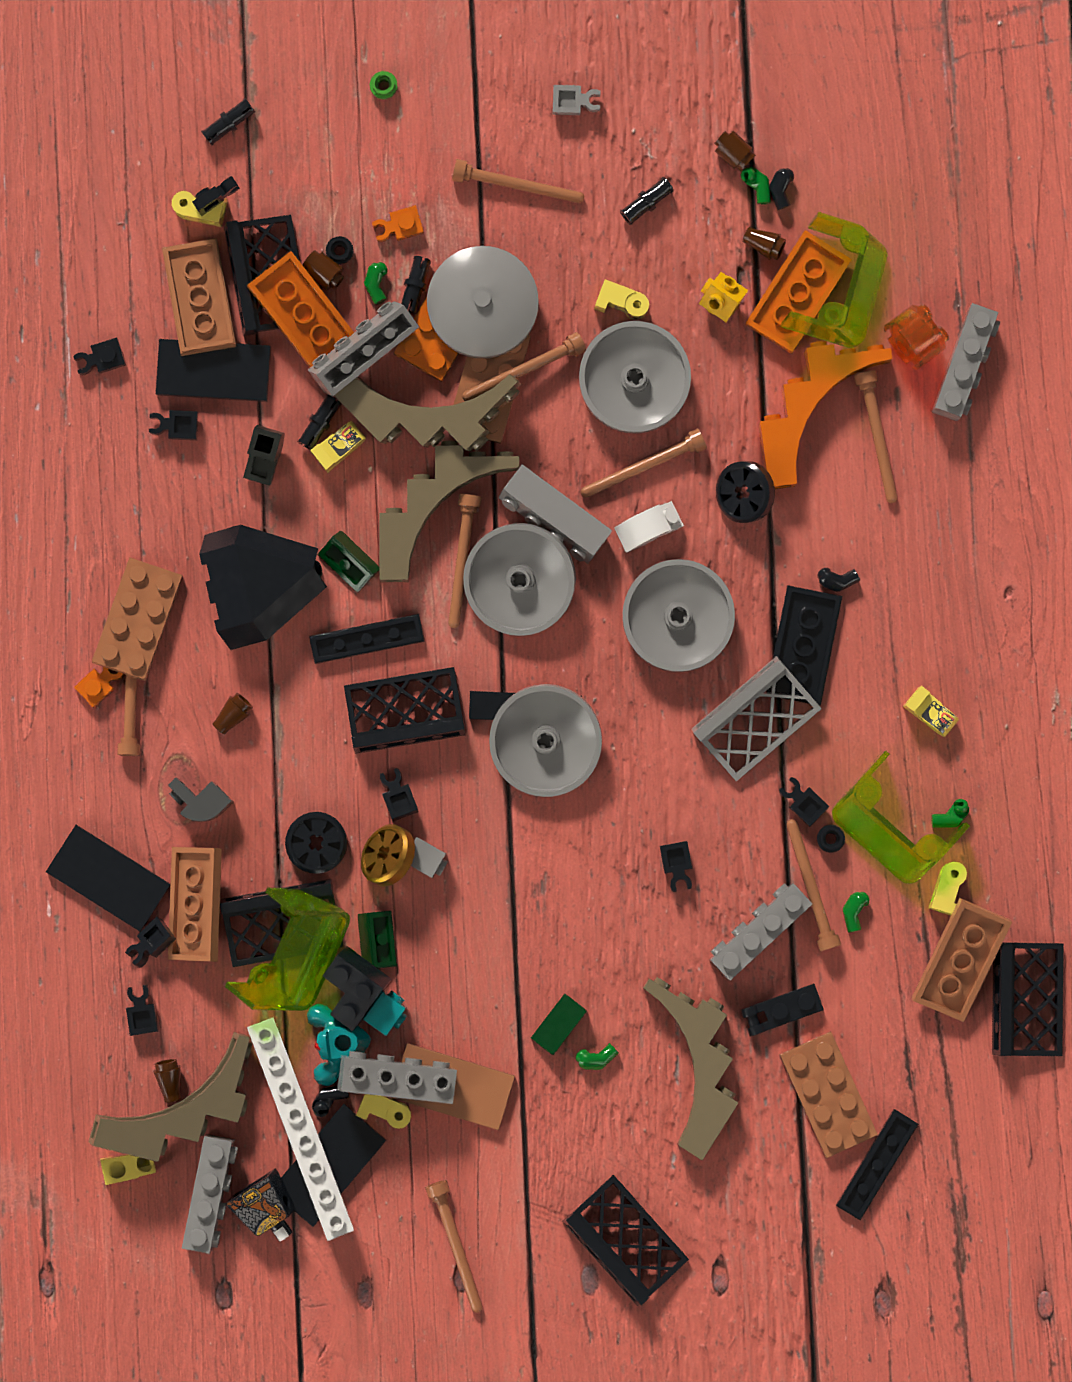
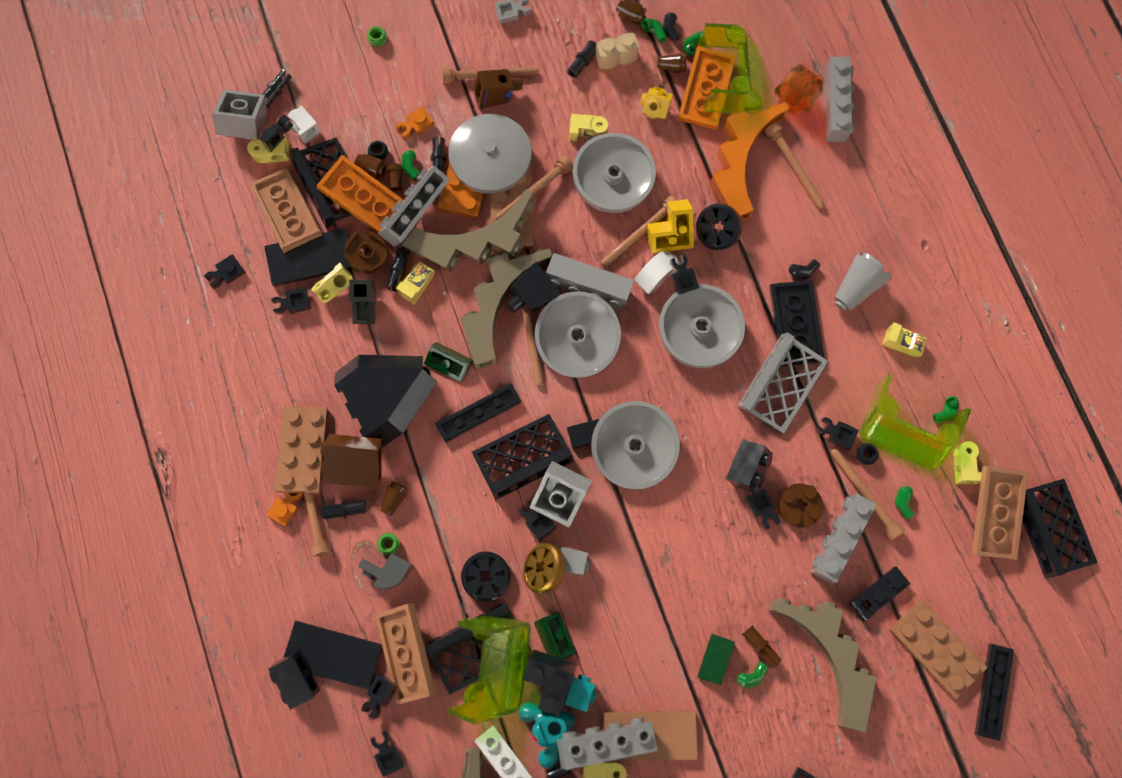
camera: 20 degrees left, 10 degrees down
(57, 893) = (293, 679): none -> black brick
(168, 709) = (343, 509): none -> black axle
(175, 152) = (240, 114): none -> light grey brick
(195, 654) = (352, 460): none -> reddish brown brick
(202, 763) = (382, 540): none -> bright green plate
(233, 418) = (332, 283): none -> light yellow leg
(252, 184) = (303, 124): none -> white brick
(301, 388) = (366, 263): none -> reddish brown plate
(352, 294) = (395, 176): none -> reddish brown pin
(435, 773) = (560, 494): none -> light grey brick
(478, 507) = (532, 291): none -> black torso
(507, 212) = (495, 87): none -> reddish brown torso
(618, 1027) = (762, 647): none -> reddish brown axle
(674, 551) = (685, 278): none -> black plate
(677, 809) = (749, 466): none -> black brick
(683, 483) = (676, 232): none -> yellow brick
(687, 204) = (617, 51): none -> tan brick
(736, 887) = (809, 496): none -> reddish brown plate
(799, 220) = (690, 42): none -> green arm
(900, 620) = (861, 281): none -> light grey cone

